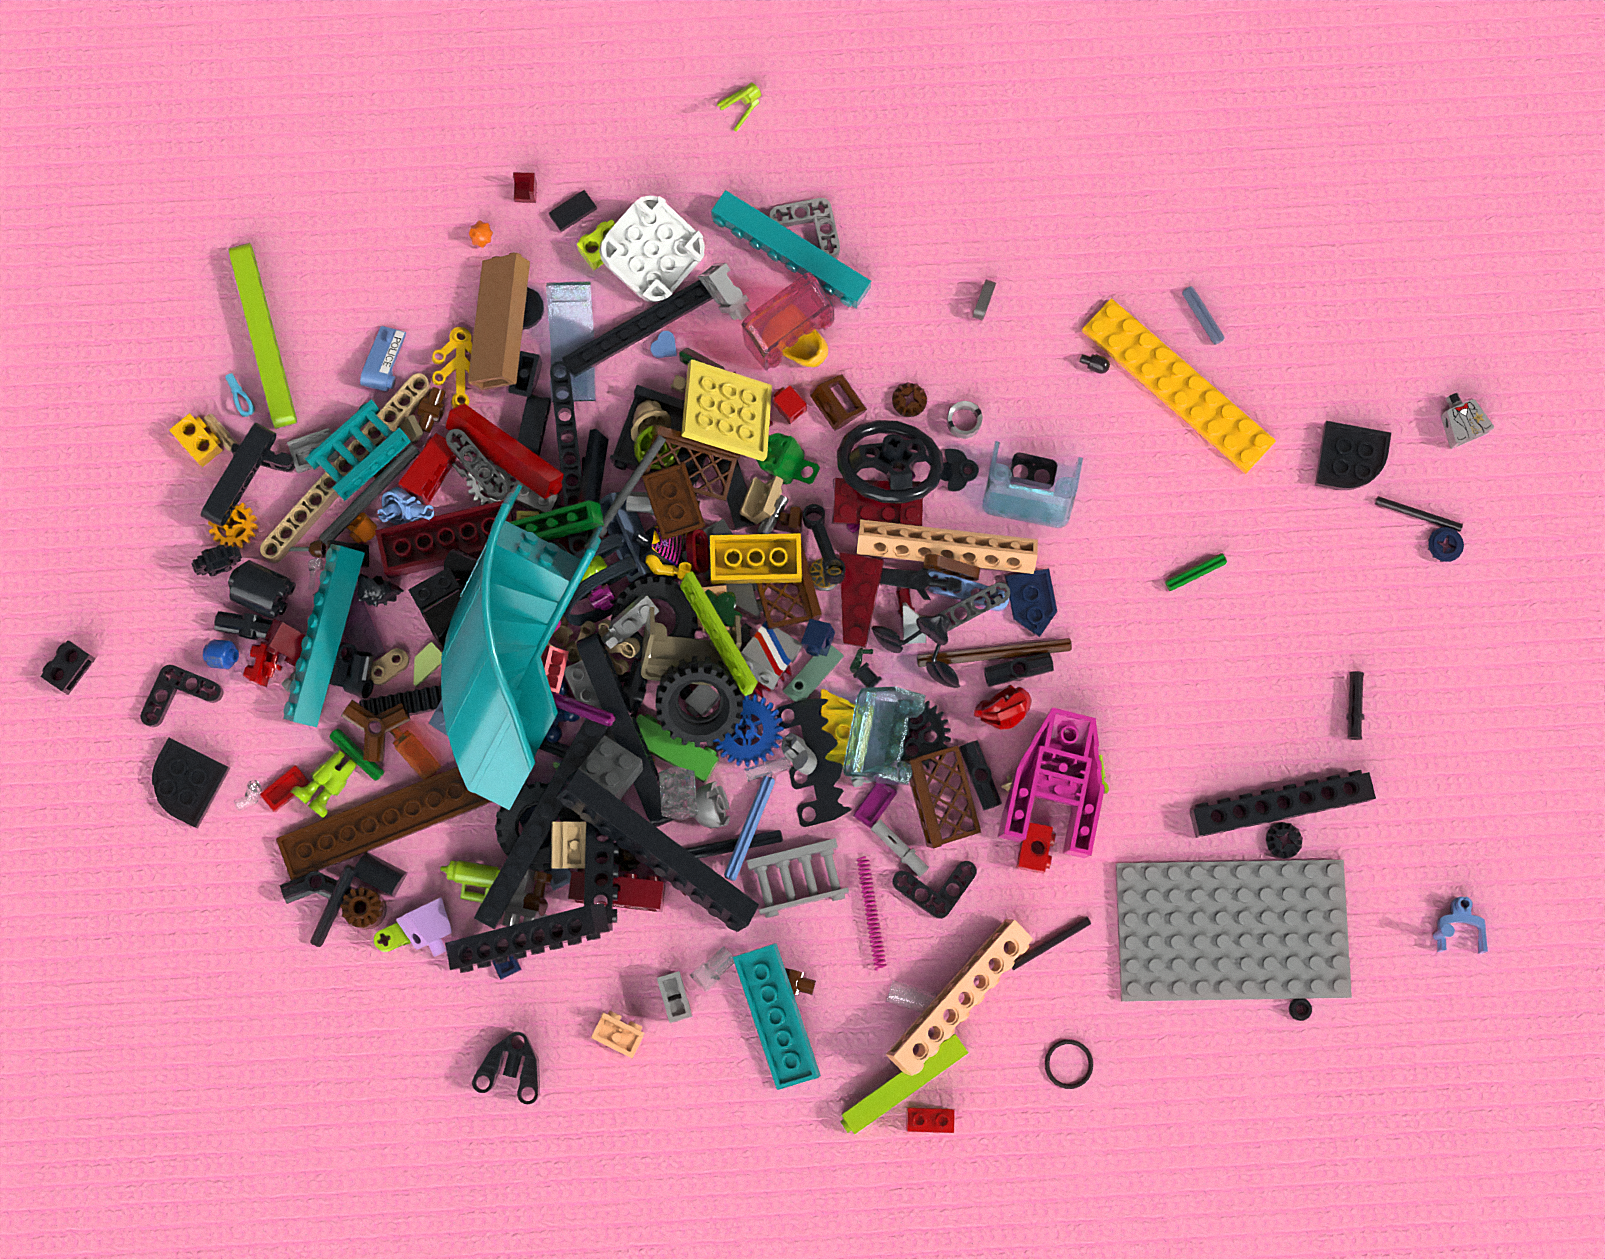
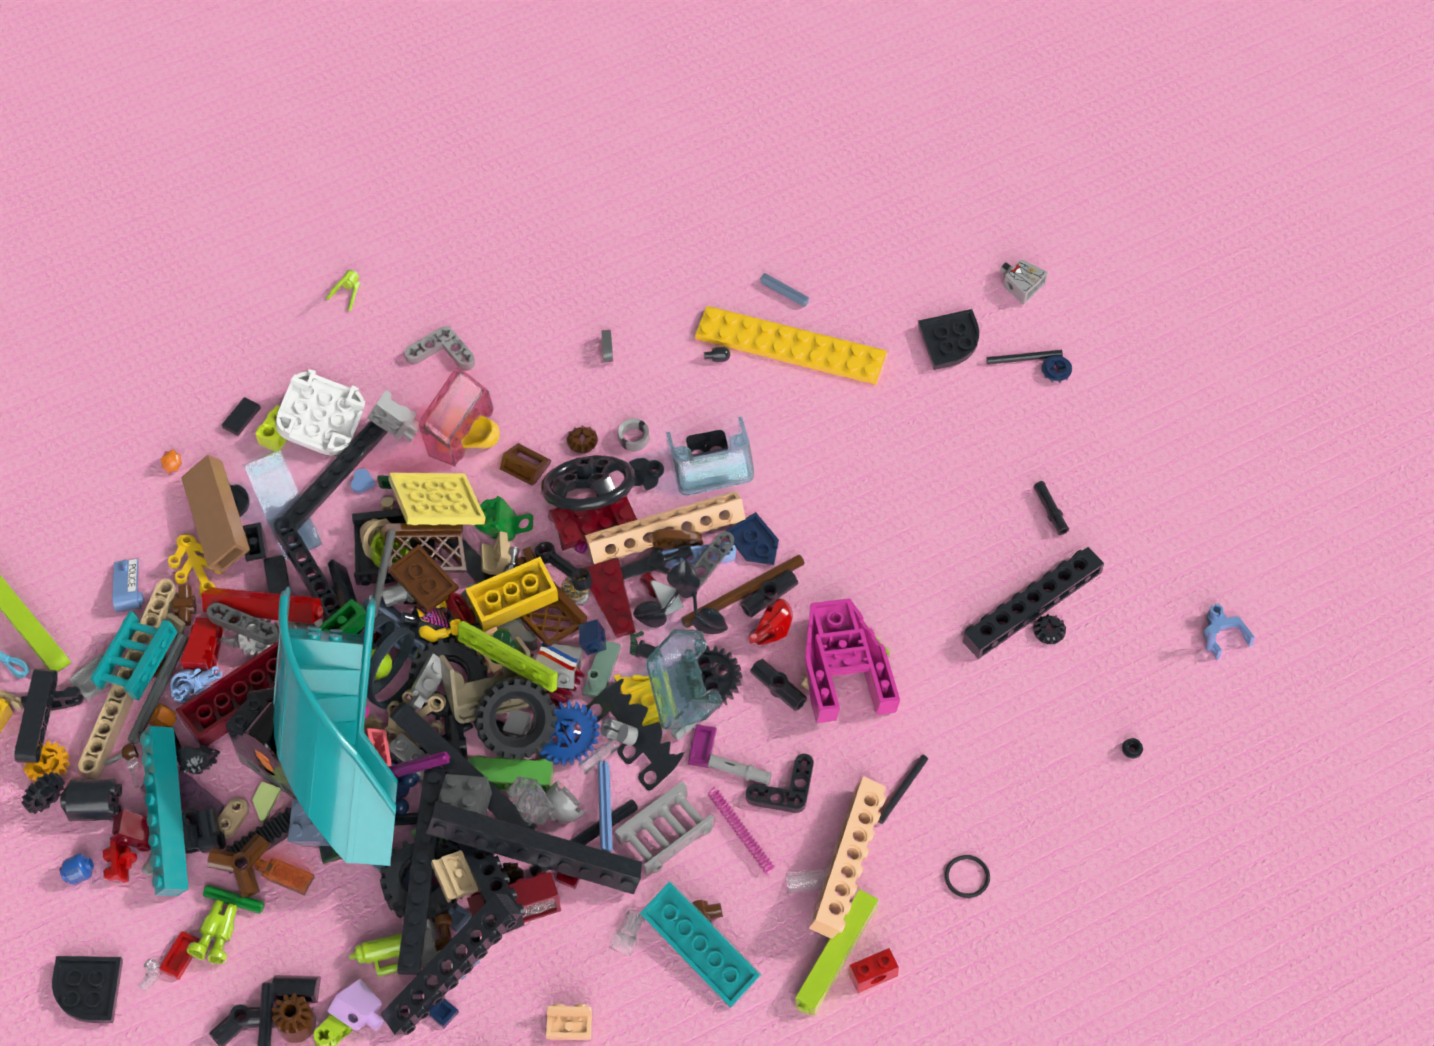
camera: 20 degrees left, 20 degrees down
(171, 687) = (42, 915): black beam -> none
(245, 625) = (91, 837): black piece -> none
(377, 823) = (284, 938): reddish brown plate -> none
(525, 187) = (193, 413): dark red panel -> none
(602, 597) = (394, 679): magenta gear -> none
(674, 997) = (604, 968): light grey brick -> none
(789, 404) = (486, 480): red brick -> none
(790, 249) = (430, 370): teal brick -> none
(924, 803) = (744, 725): reddish brown fence -> none
(1036, 862) = (852, 731): red brick -> none
(1196, 572) = (875, 465): green axle -> none
(1232, 930) = (1045, 714): light grey plate -> none

